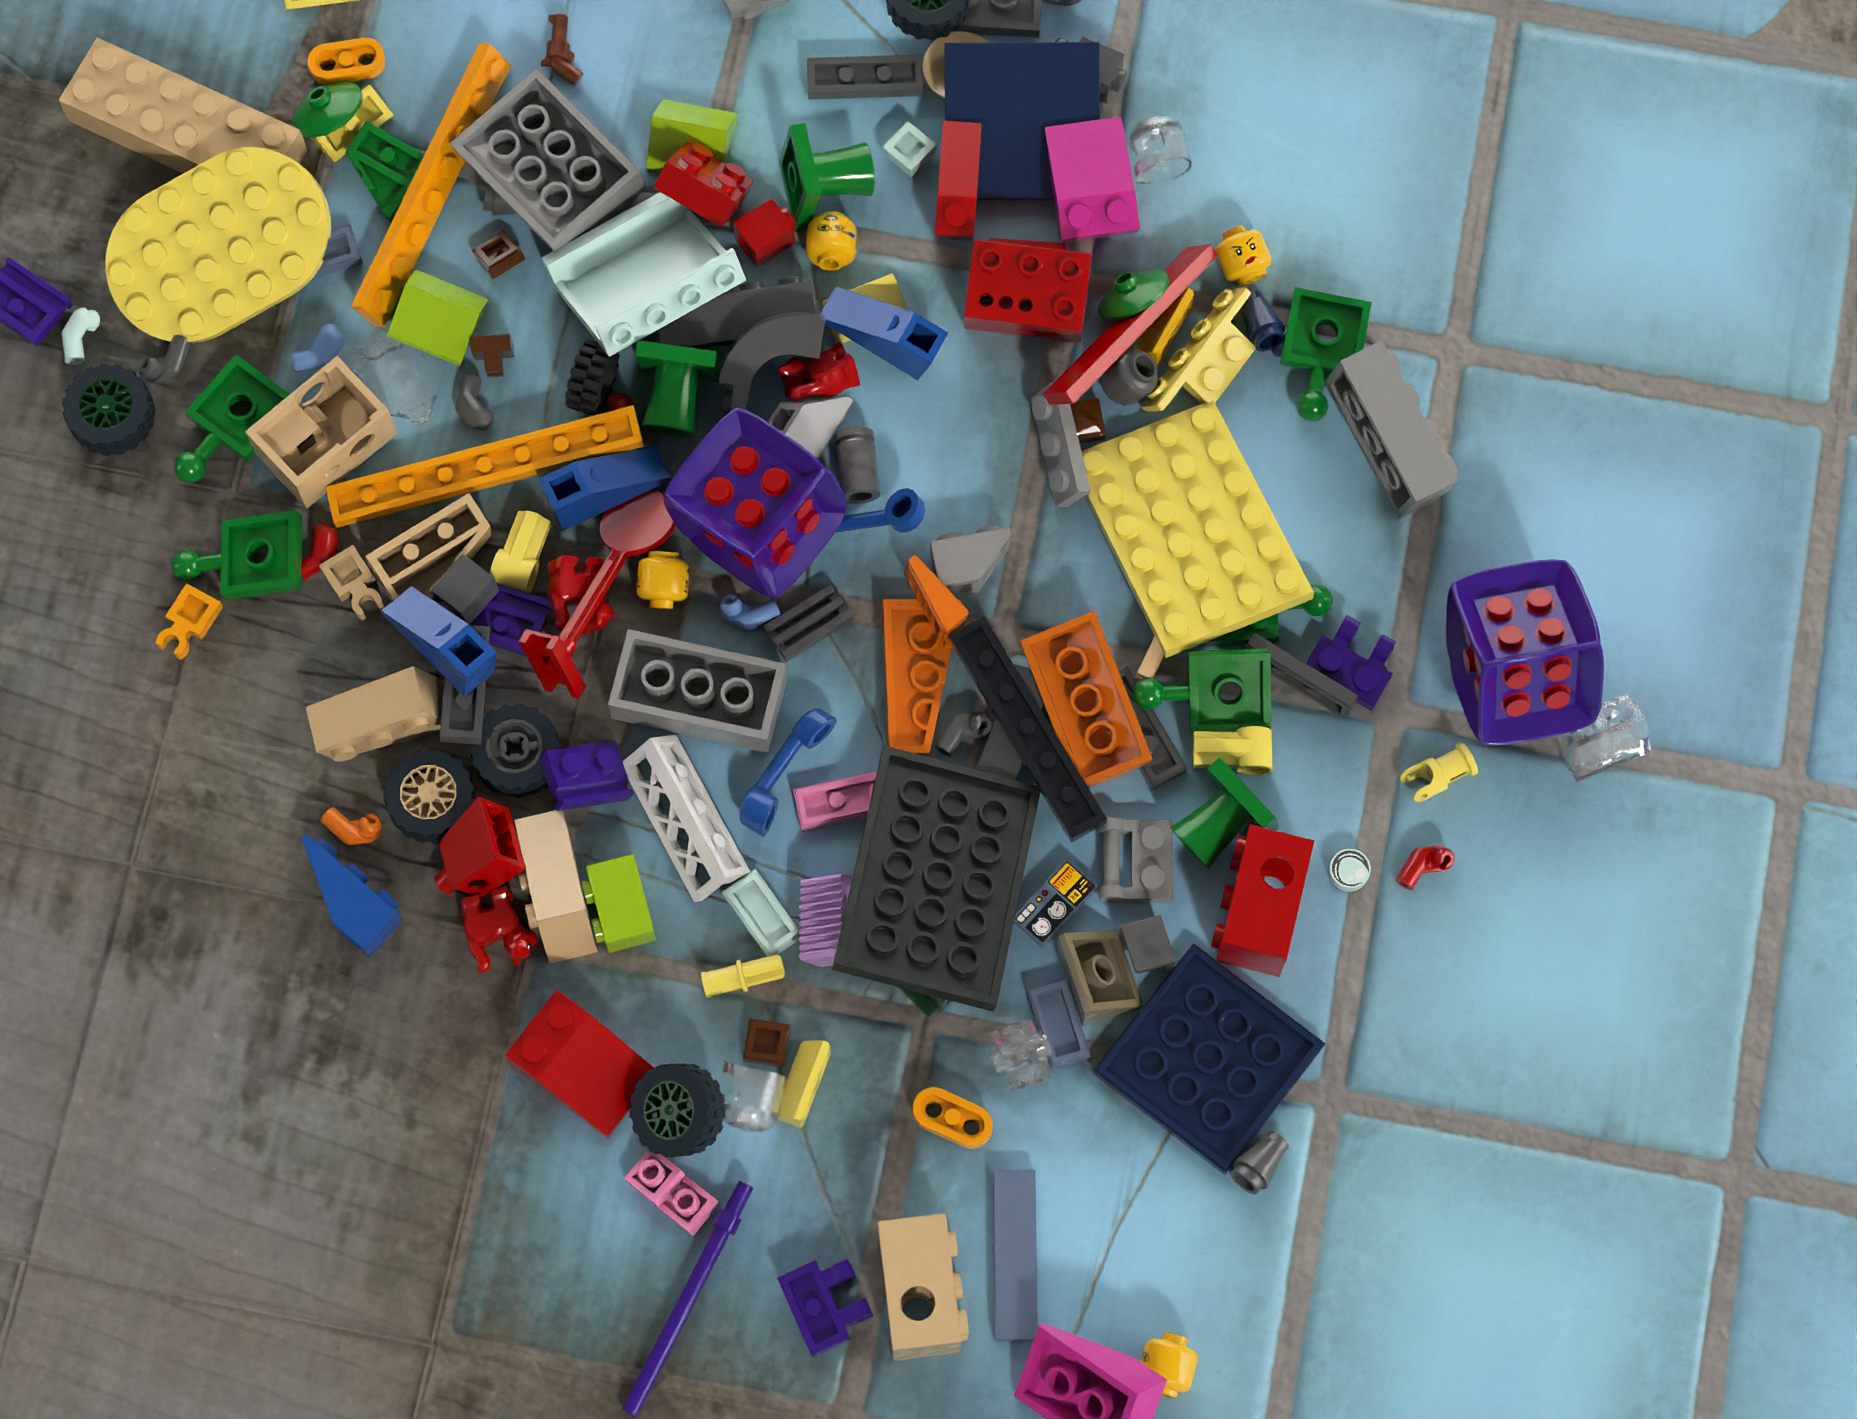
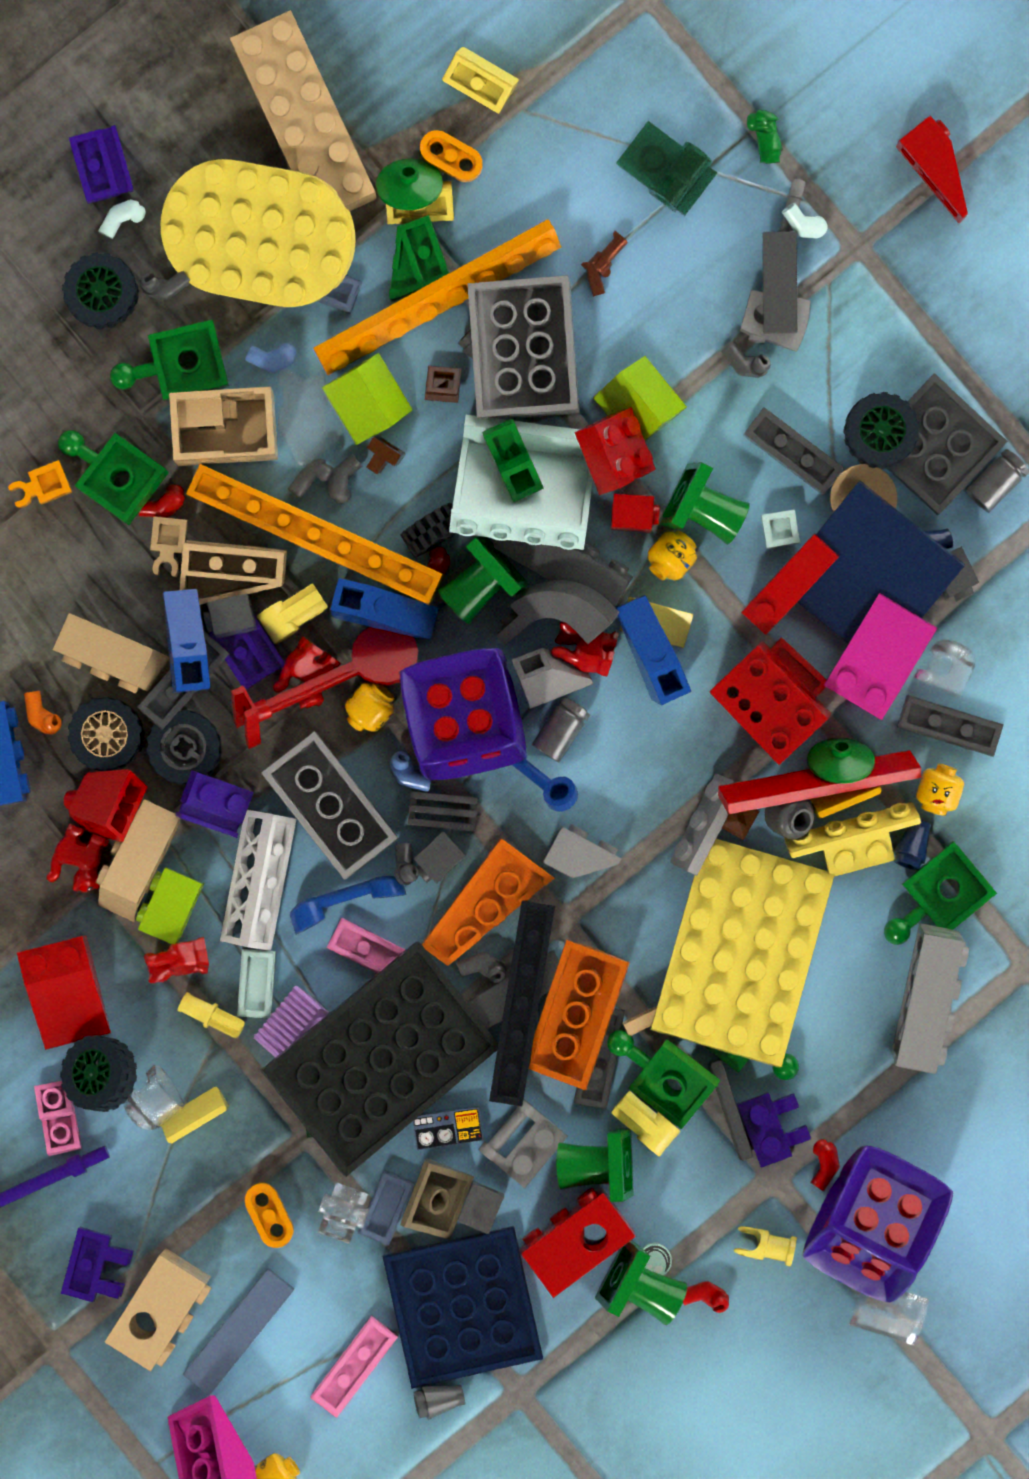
camera: 40 degrees right, 15 degrees up
(436, 424) = (308, 474): none -> dark grey arm
(618, 262) = (513, 460): none -> green slope
(669, 943) = (178, 960): none -> red animal
(761, 40) = (746, 365): none -> dark grey arm
(766, 1043) = (192, 1070): reddish brown tile -> none
(816, 694) = (405, 871): none -> dark grey arm
(839, 663) = (438, 858): none -> dark grey brick
(938, 603) = (531, 879): orange slope -> none
(1153, 1198) = (354, 1366): none -> bright pink tile
(1204, 200) = (950, 725): none -> dark grey tile
(1346, 898) = (634, 1283): none -> green plant
(1424, 648) = (828, 1161): none -> red arm

